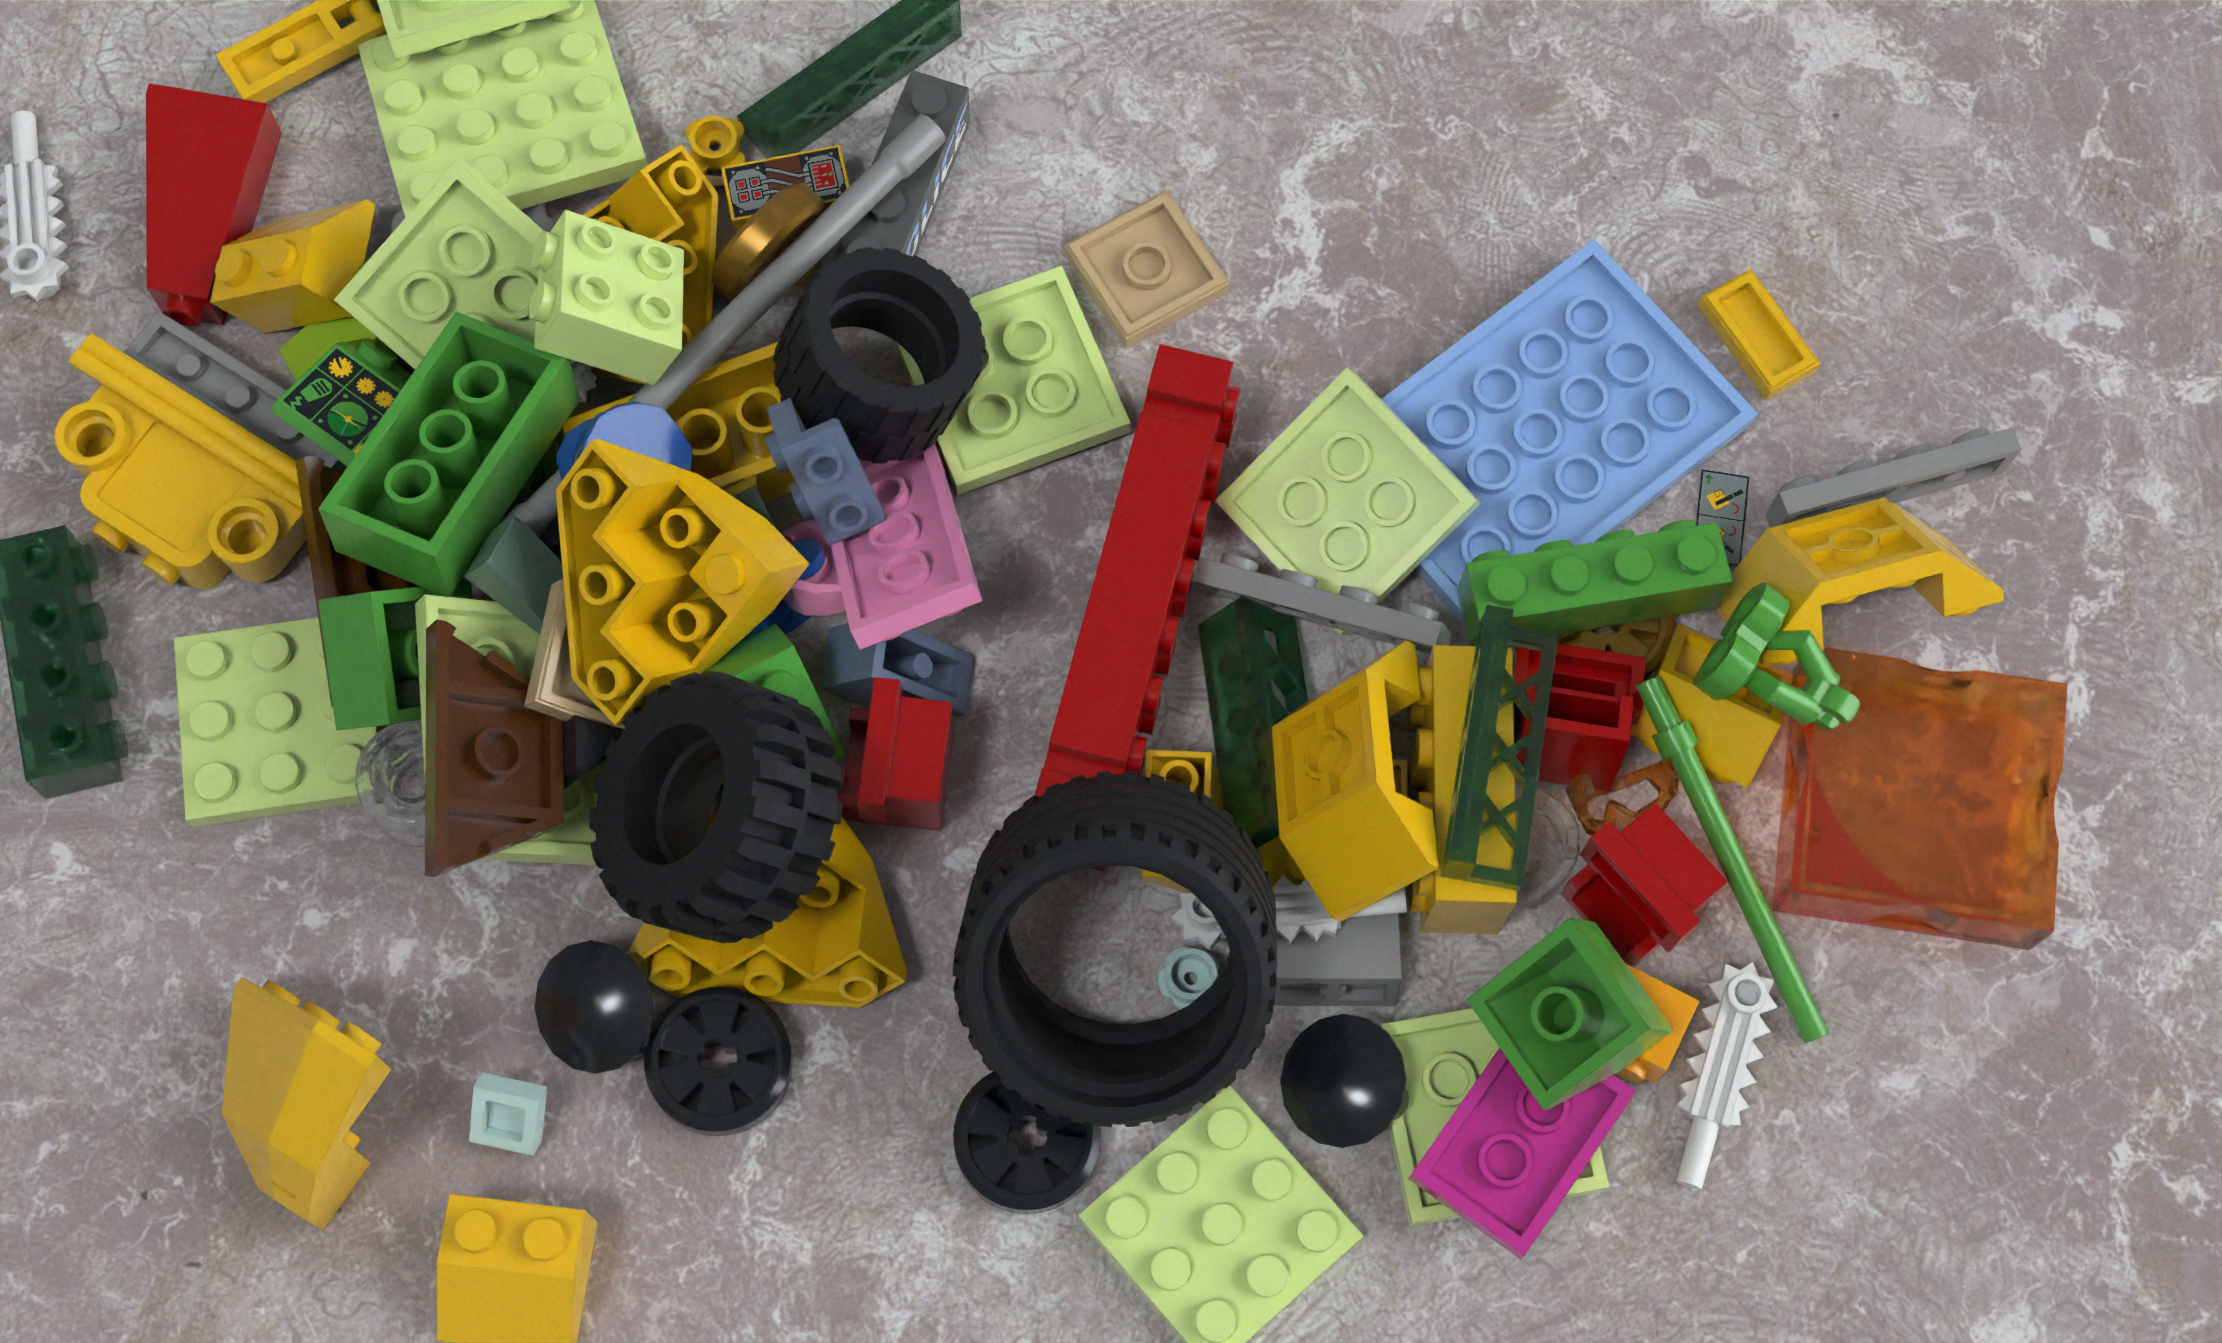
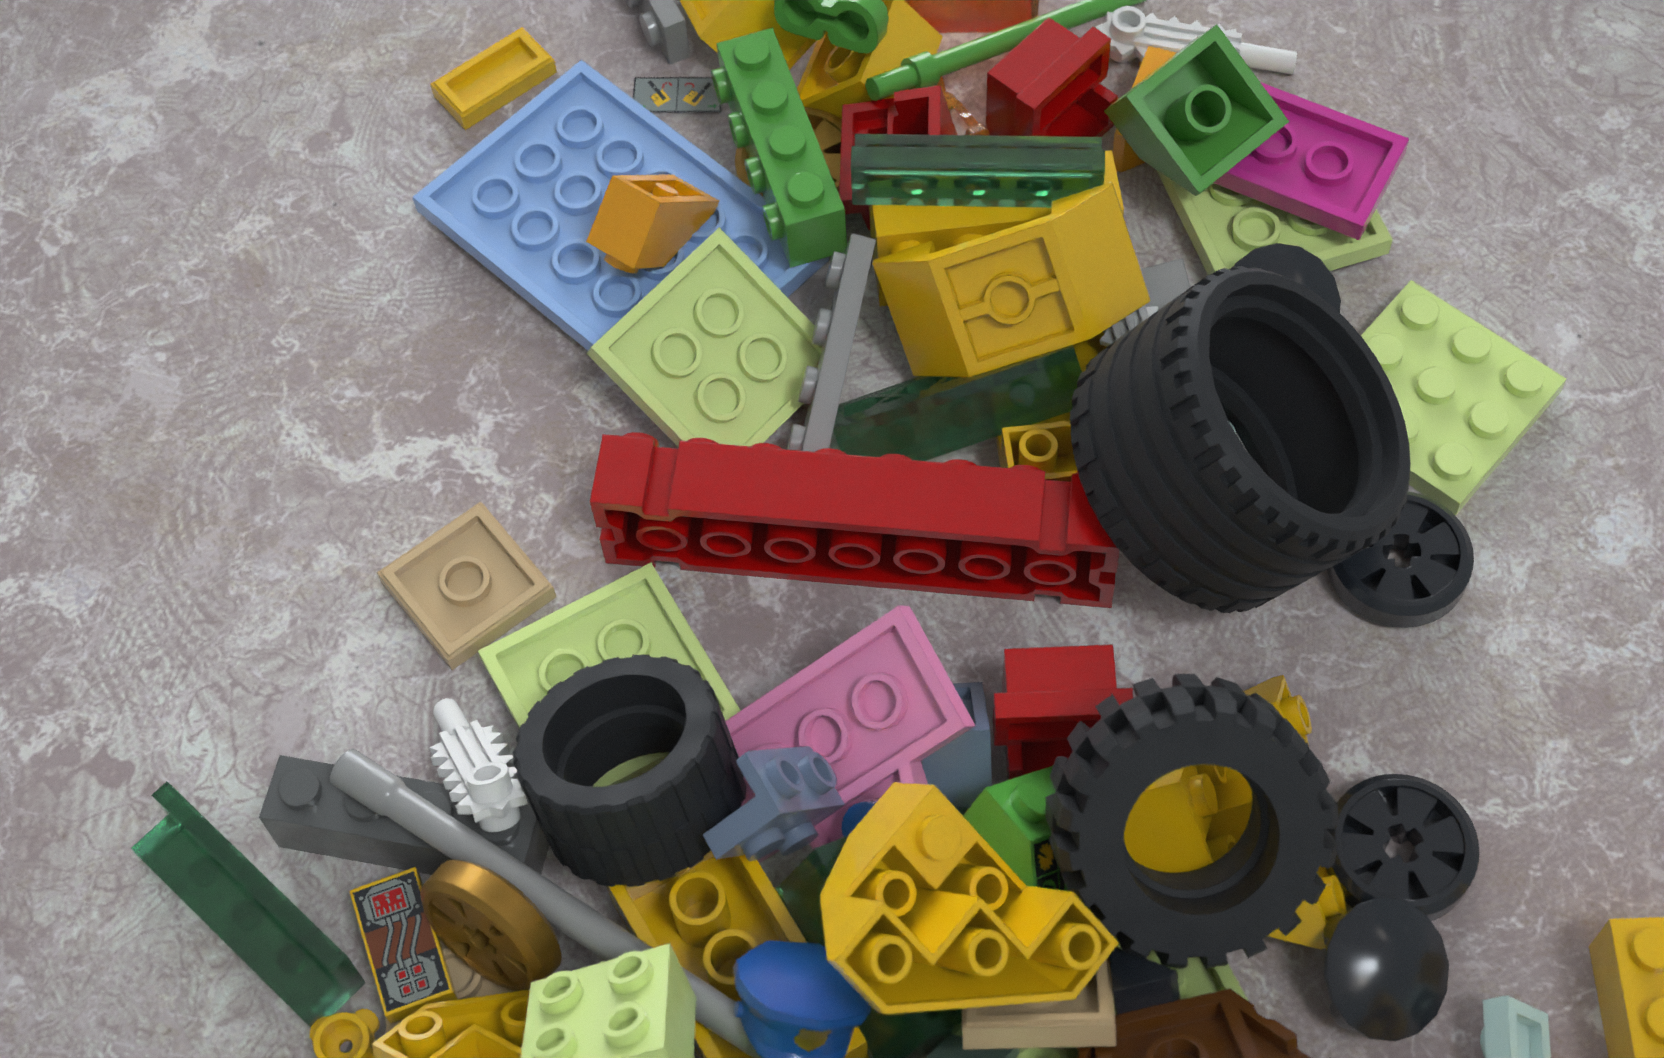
camera: 90 degrees left, 10 degrees down
(939, 242) = (477, 769): none -> white piece
(1521, 452) = (648, 220): none -> light orange slope

